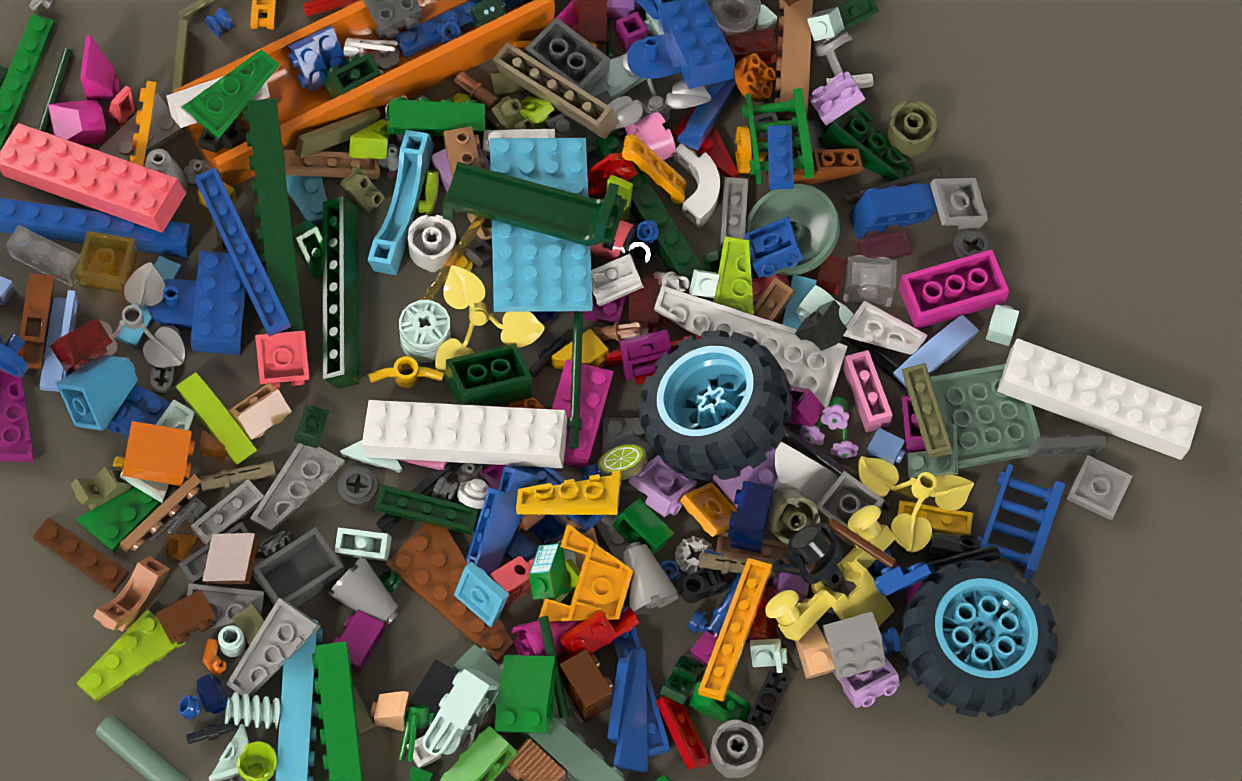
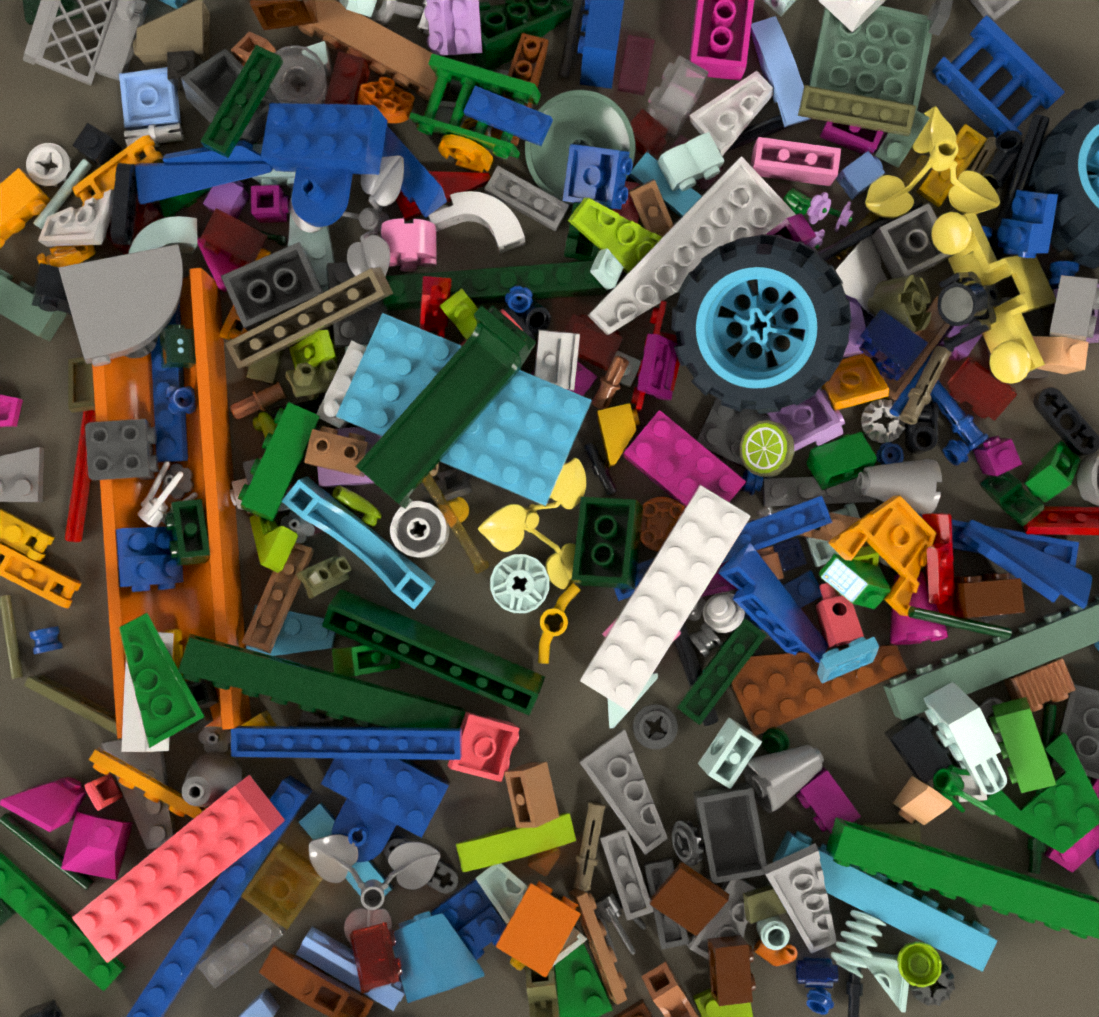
camera: 60 degrees left, 20 degrees up
(179, 545) = (641, 936): clear orange slope -> none
(311, 426) = (572, 748): clear green plate -> none
(335, 132) = (245, 575): olive tile -> none
(526, 695) = (982, 666): green slope -> none
(574, 423) = (706, 479): dark green bar -> none
(585, 497) = (799, 511): yellow wing -> none
(655, 167) = (447, 256): light orange plate -> none
(672, 280) = (581, 301): white axle -> none
(735, 629) = (1006, 421): light orange plate -> none
(768, 653) = (1027, 396): light aqua bracket -> none
(823, 326) = (717, 169): pearl dark grey brick -> none
(862, 543) = (987, 248): reddish brown piece -> none

